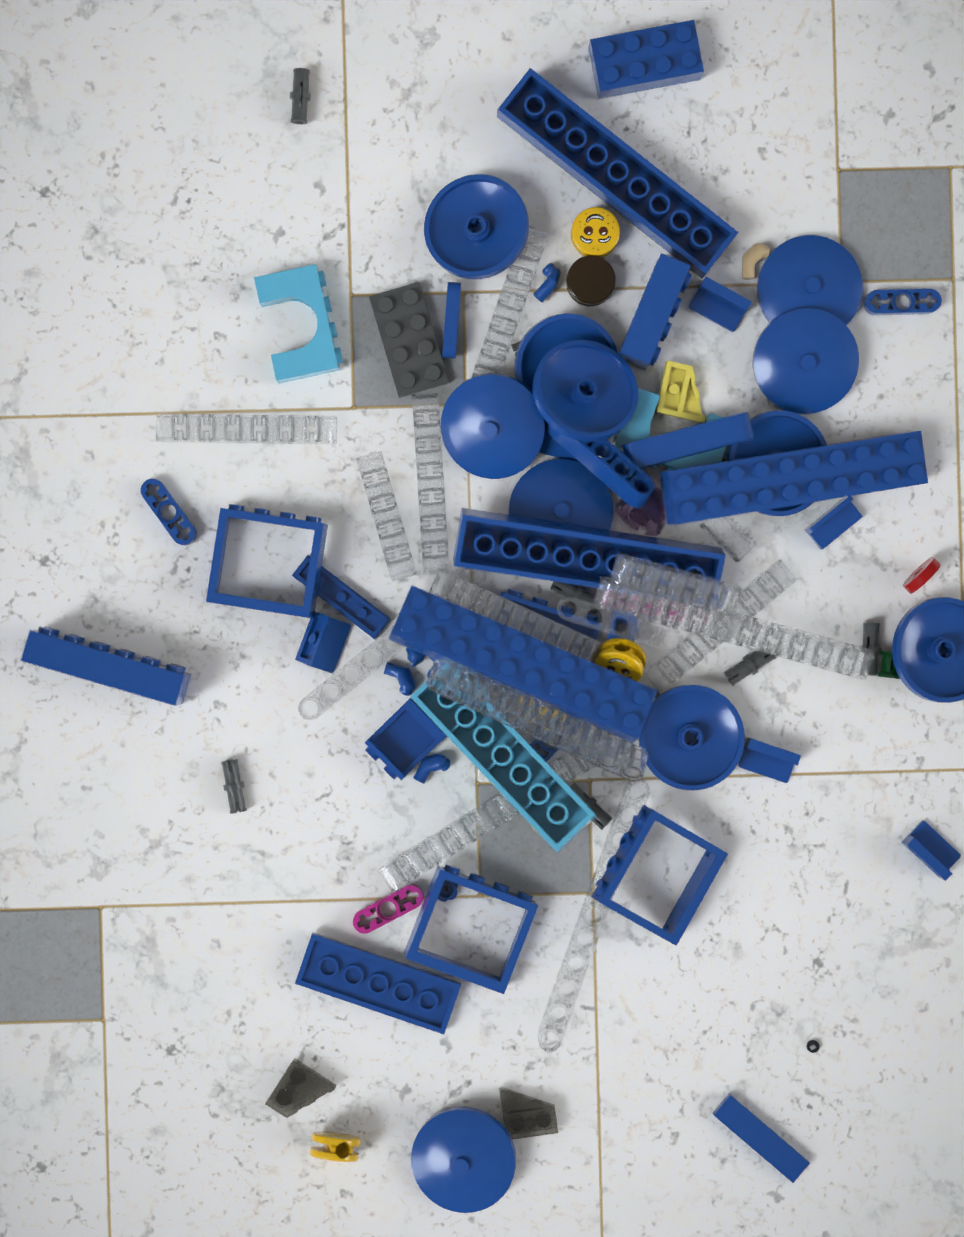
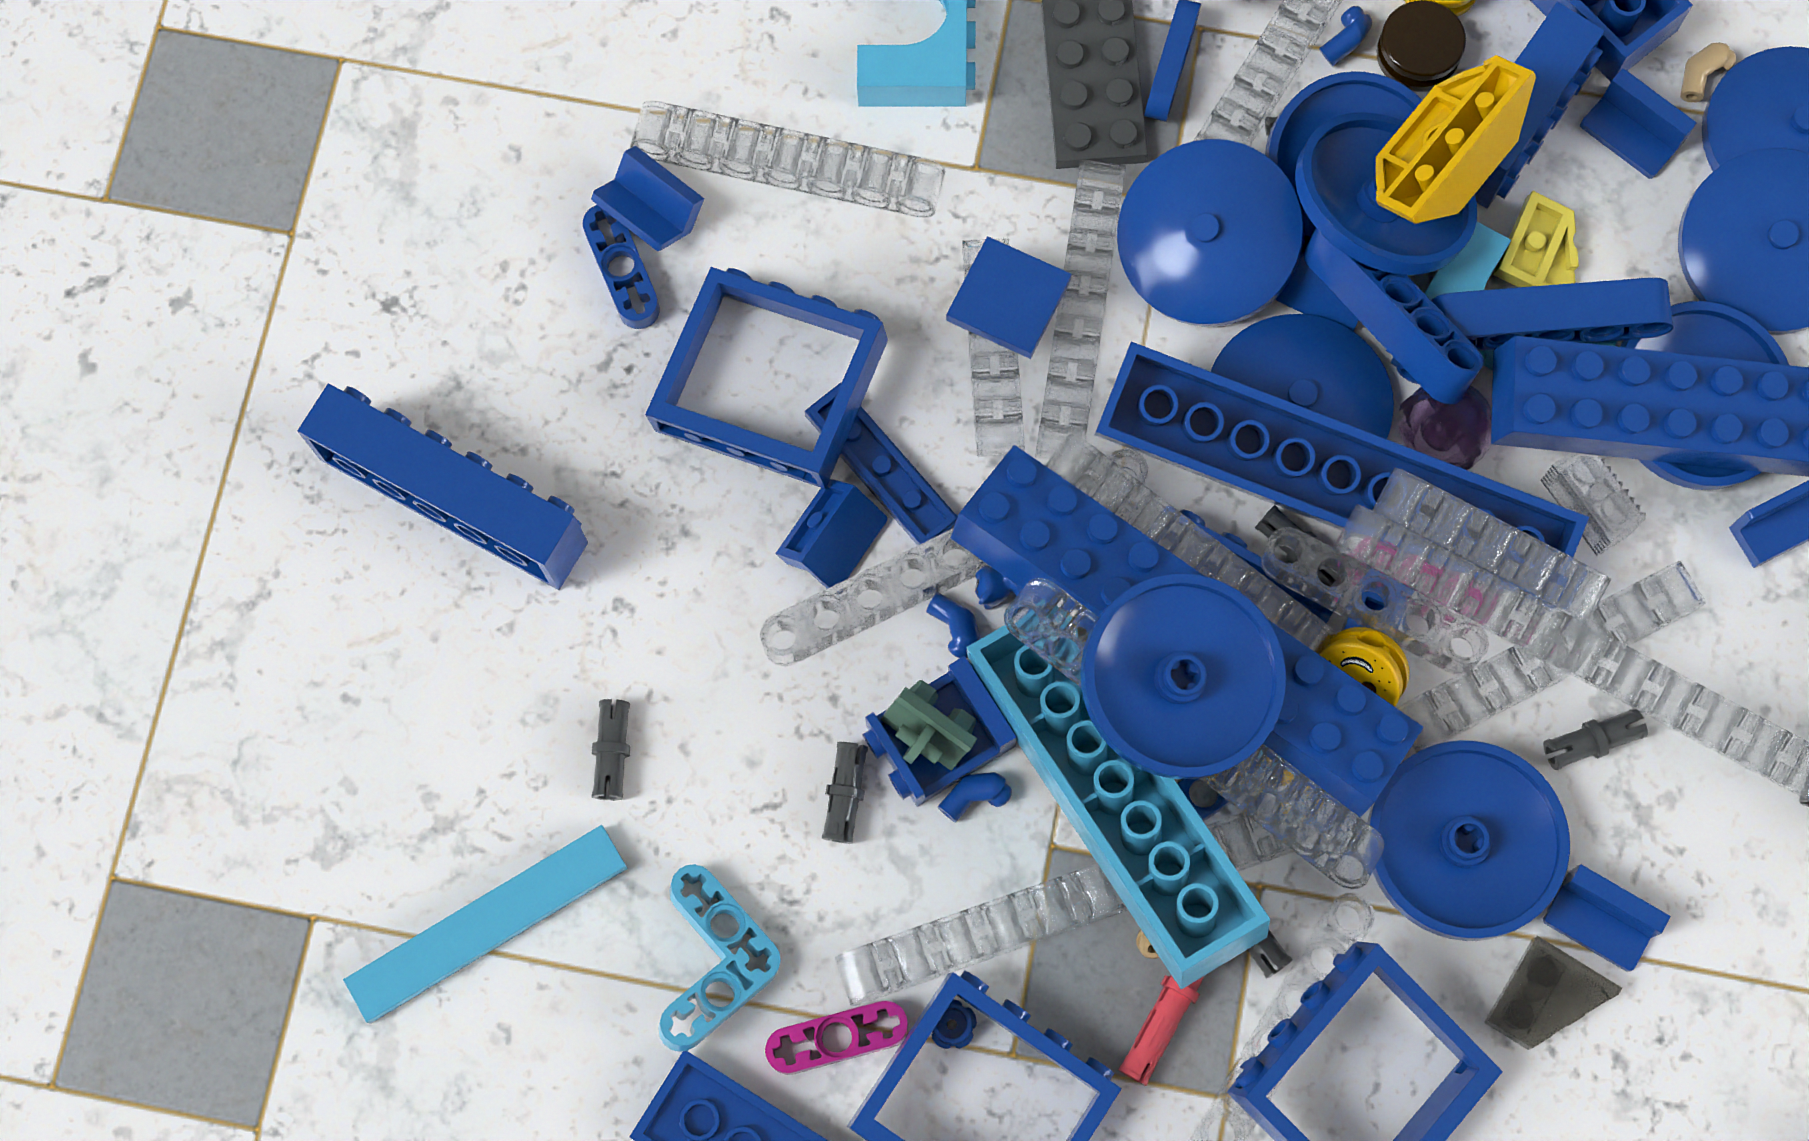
camera: 15 degrees right, 15 degrees down
(174, 473) = (649, 200): none -> blue panel
(192, 891) = (484, 924): none -> medium azure tile
(325, 888) = (730, 970): none -> medium azure beam
(362, 782) = (845, 792): none -> dark grey pin
(389, 491) = (1008, 297): none -> blue tile
(397, 743) = (929, 730): none -> sand green hips
(526, 701) = (1183, 676): none -> blue dish
(550, 872) = (1158, 1029): none -> coral pin
(614, 361) = (1453, 141): none -> yellow wedge
(745, 806) = (1547, 995): none -> clear smoke wing

